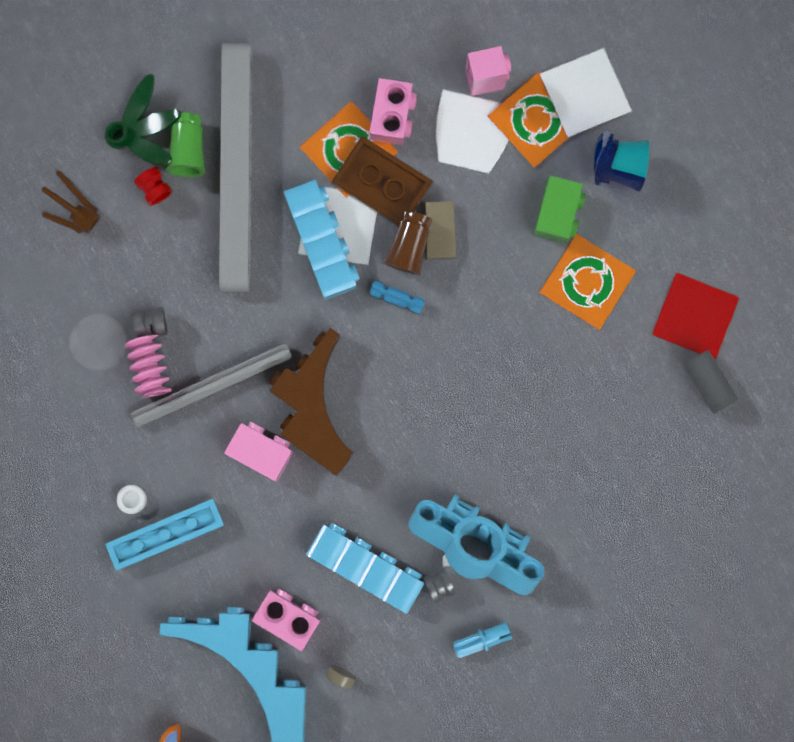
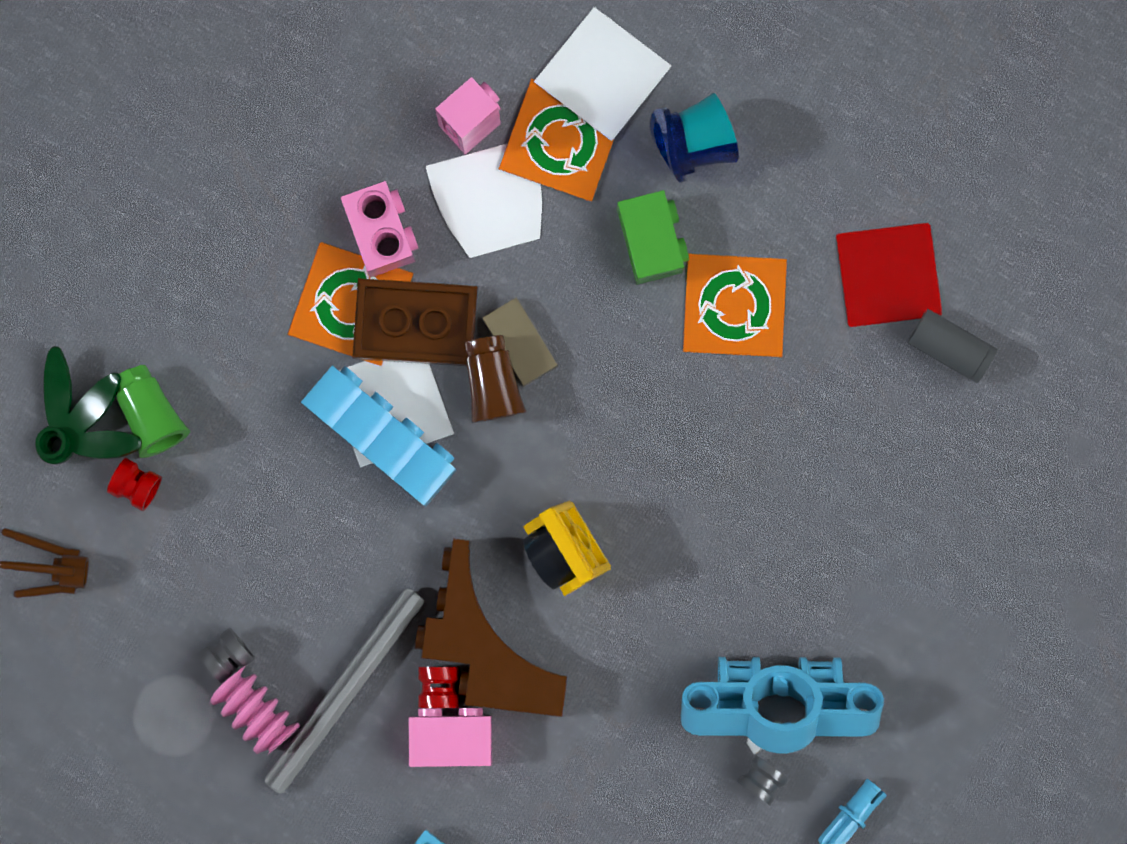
camera: 30 degrees left, 0 degrees up
(235, 167) = (224, 404): light grey beam -> none
(267, 421) = (438, 696): none -> red wheel
(365, 568) = (661, 809): medium azure brick -> none
(395, 372) = (564, 549): none -> yellow piece
(397, 297) = (512, 454): dark azure axle -> none

